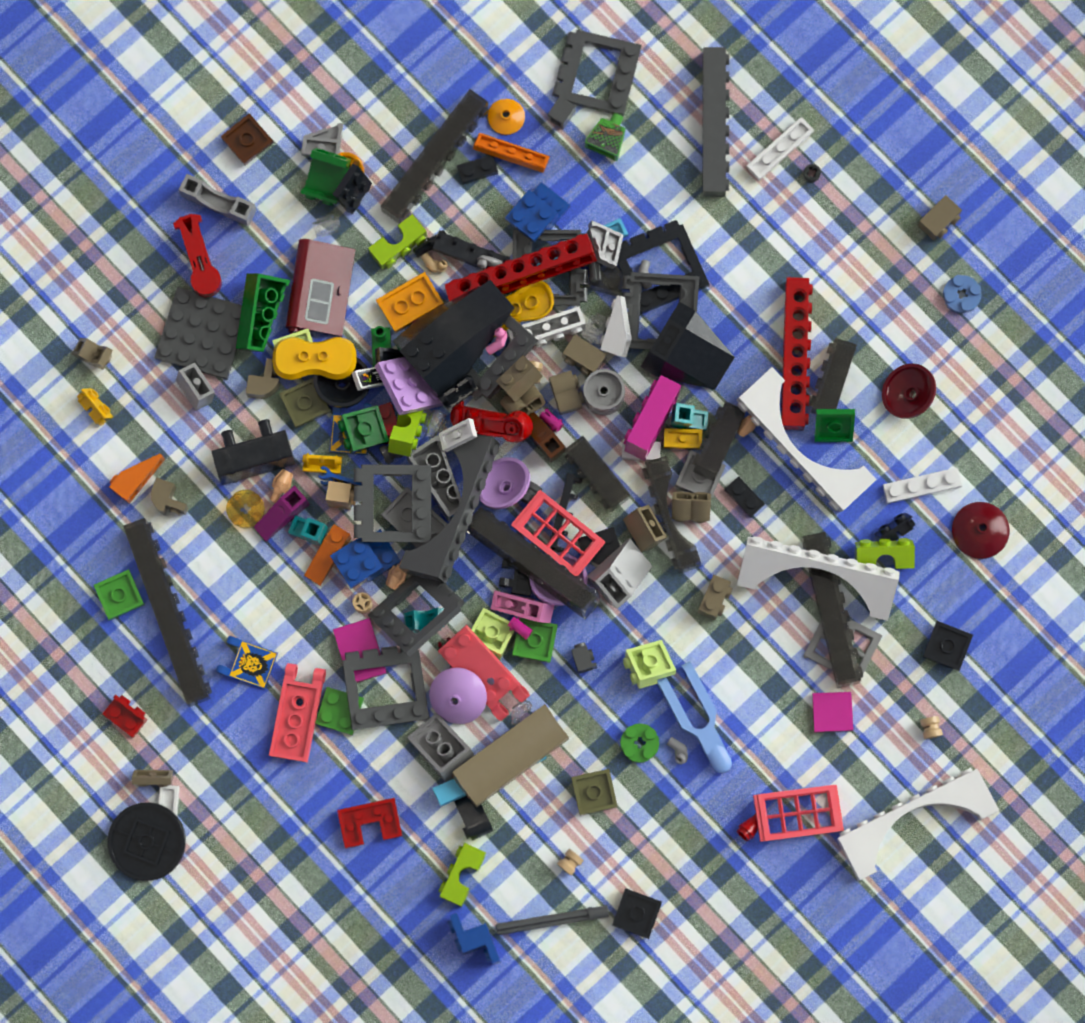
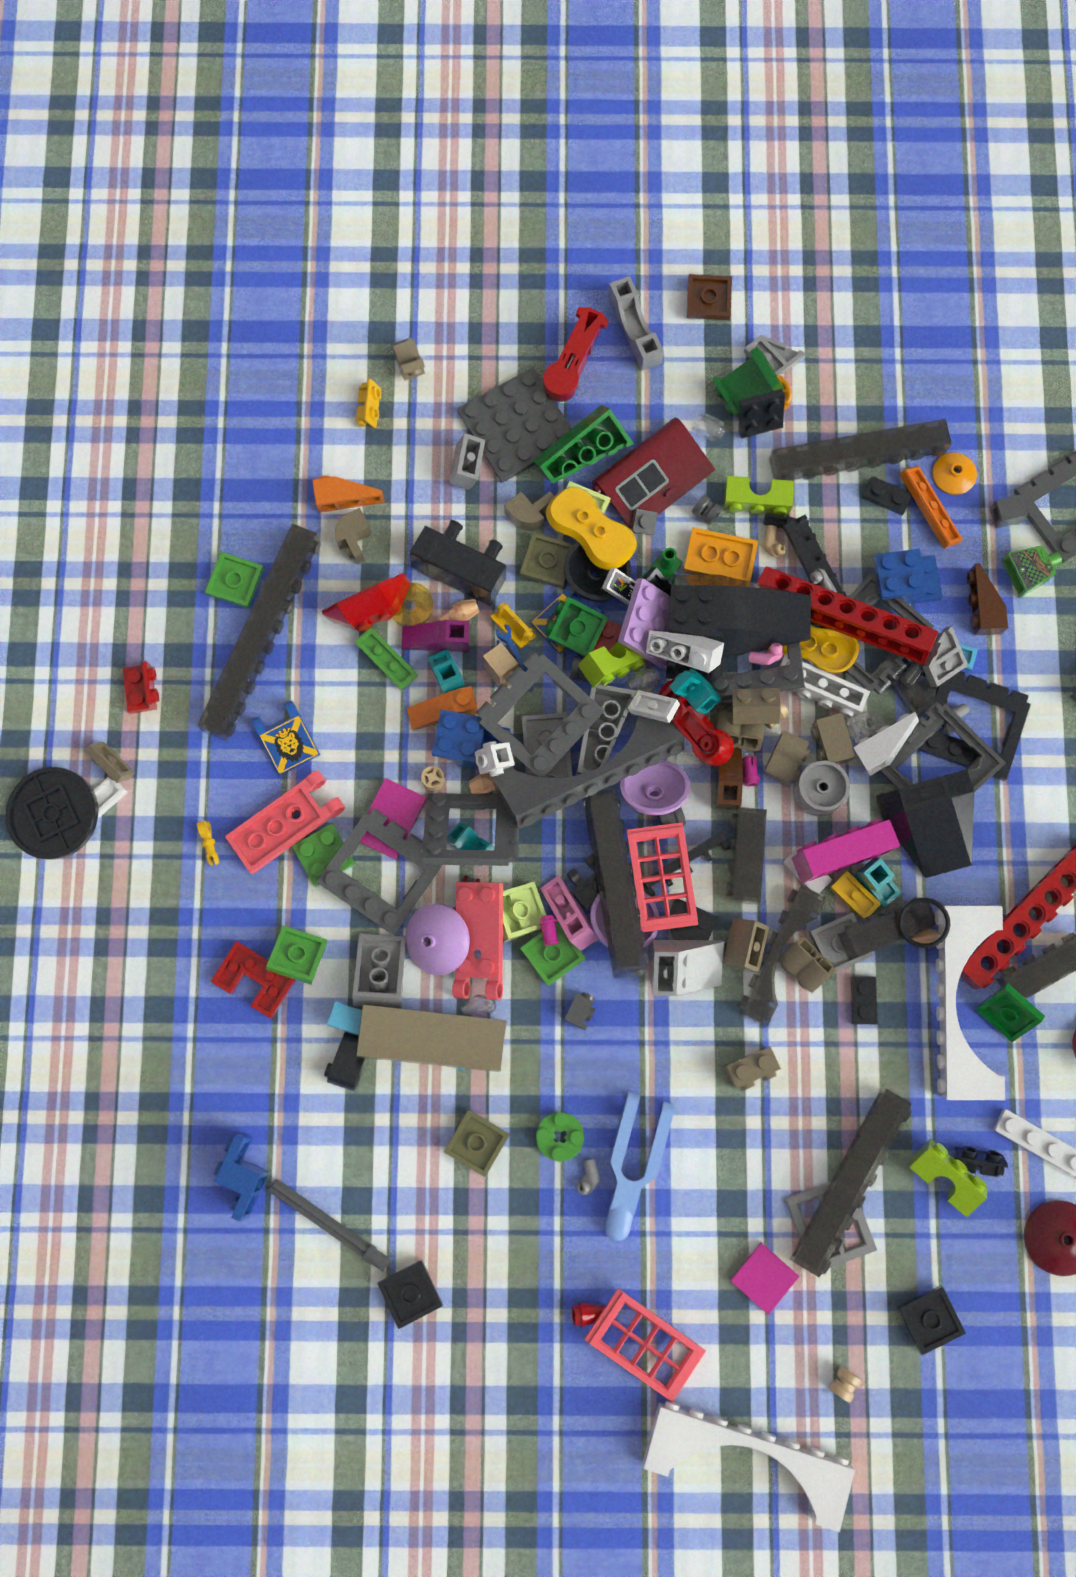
camera: 40 degrees right, 0 degrees up
(223, 532) = (370, 605): none -> red wedge
(261, 769) = (205, 832): none -> yellow piece
(262, 556) = (386, 659): none -> bright green plate
(342, 323) = (644, 522): none -> dark grey plate
(378, 280) = (709, 513): none -> dark grey wheel
(382, 783) = (296, 955): none -> bright green plate
(391, 554) = (494, 758): none -> white brick
(446, 382) = (686, 649): none -> white slope
(468, 858) = (268, 1111): lime arch -> none
(474, 401) = (696, 691): none -> teal brick
(570, 862) = (394, 1187): tan wheel -> none
(603, 186) = (988, 608): none -> reddish brown slope
(648, 663) = (634, 1072): yellowish green plate -> none
(736, 435) = (924, 945): none -> black tyre
(767, 558) = (914, 1197): white arch -> none

